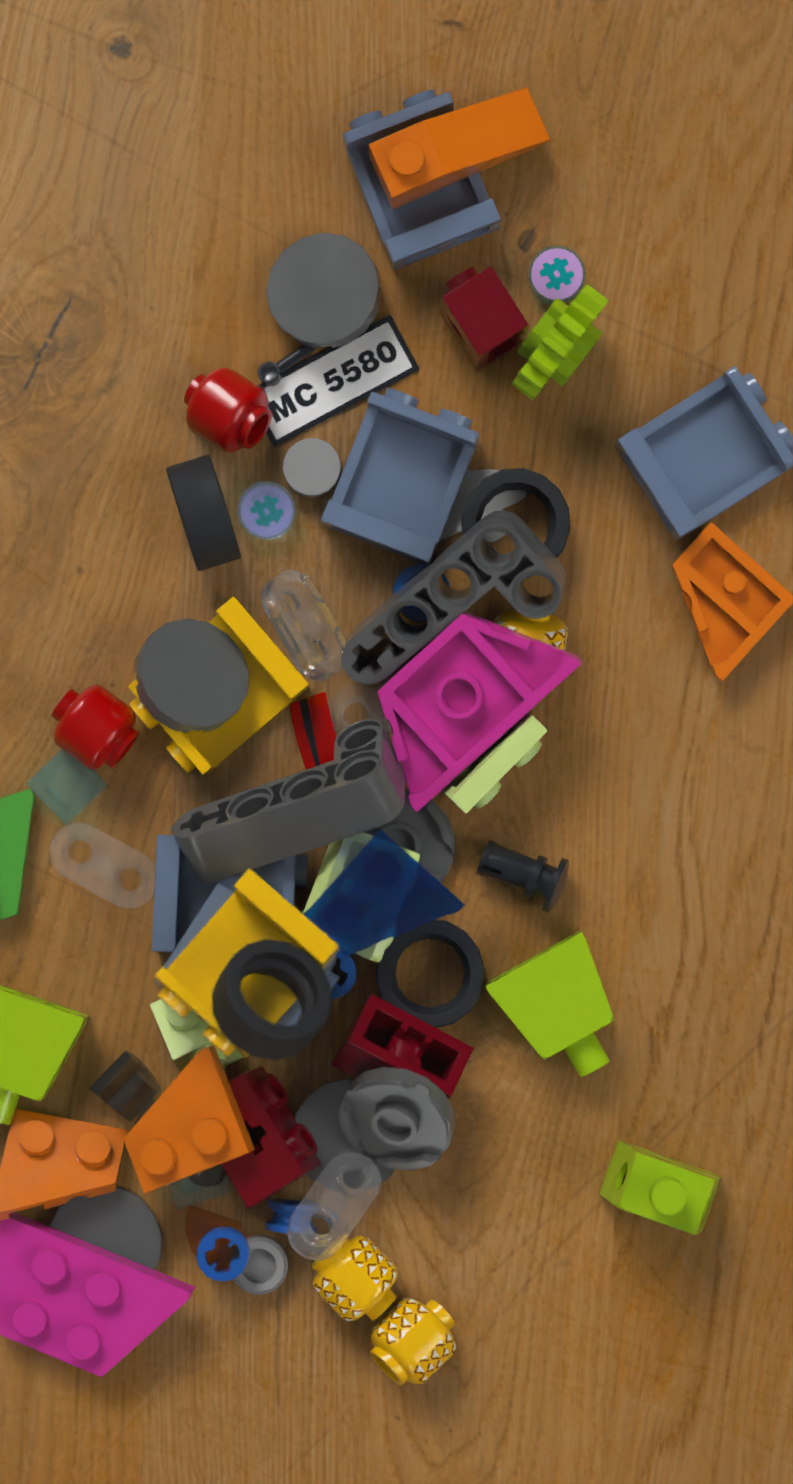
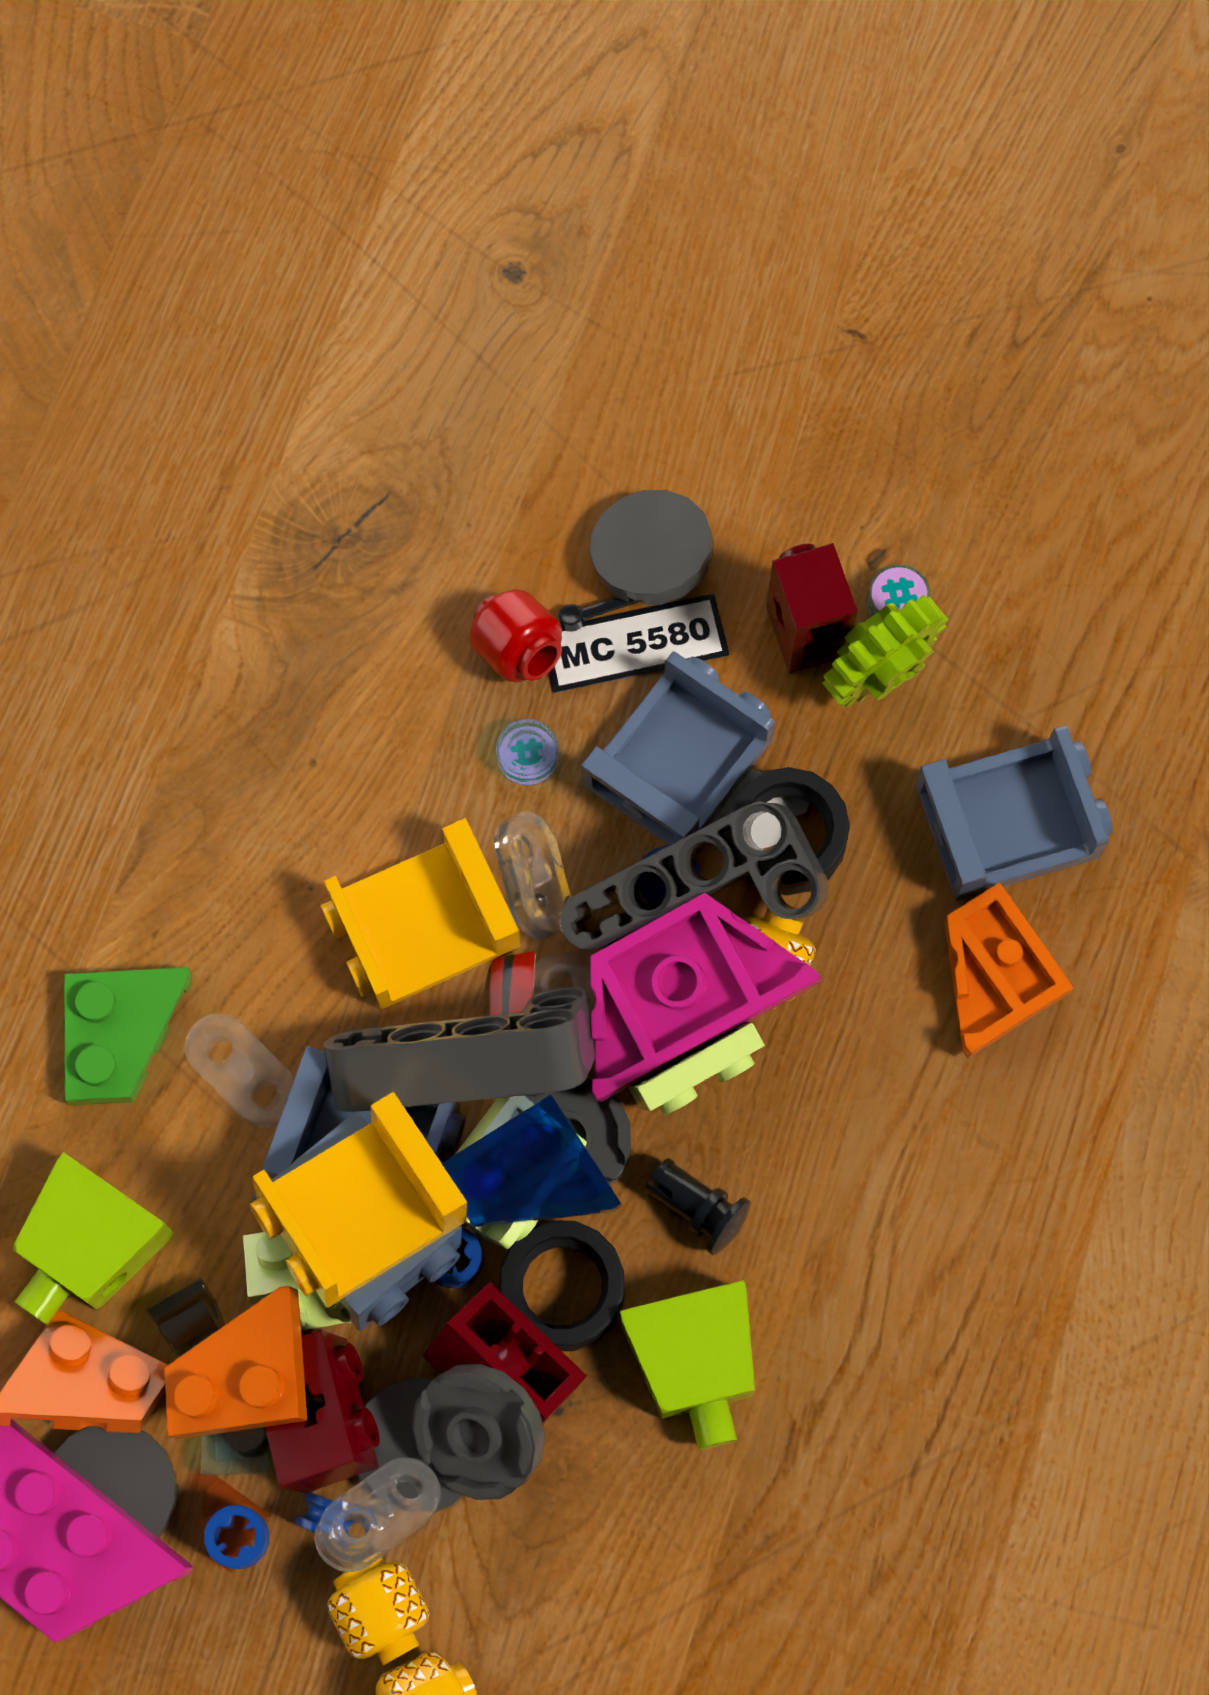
camera: 10 degrees right, 15 degrees down
(66, 786) = (229, 975): clear light blue tile -> none
(94, 727) = (276, 919): red head -> none
(191, 676) = (395, 890): dark grey tile -> none
(203, 512) = (459, 726): black tyre -> none
(265, 1266) = (280, 1571): light grey tile -> none
(299, 974) = (345, 1268): black tyre -> none
(312, 467) = (587, 720): light grey tile -> none
(430, 222) = (781, 465): sand blue panel -> none
(456, 146) = (824, 436): orange slope -> none
(659, 1187) = (759, 1603): lime torso -> none

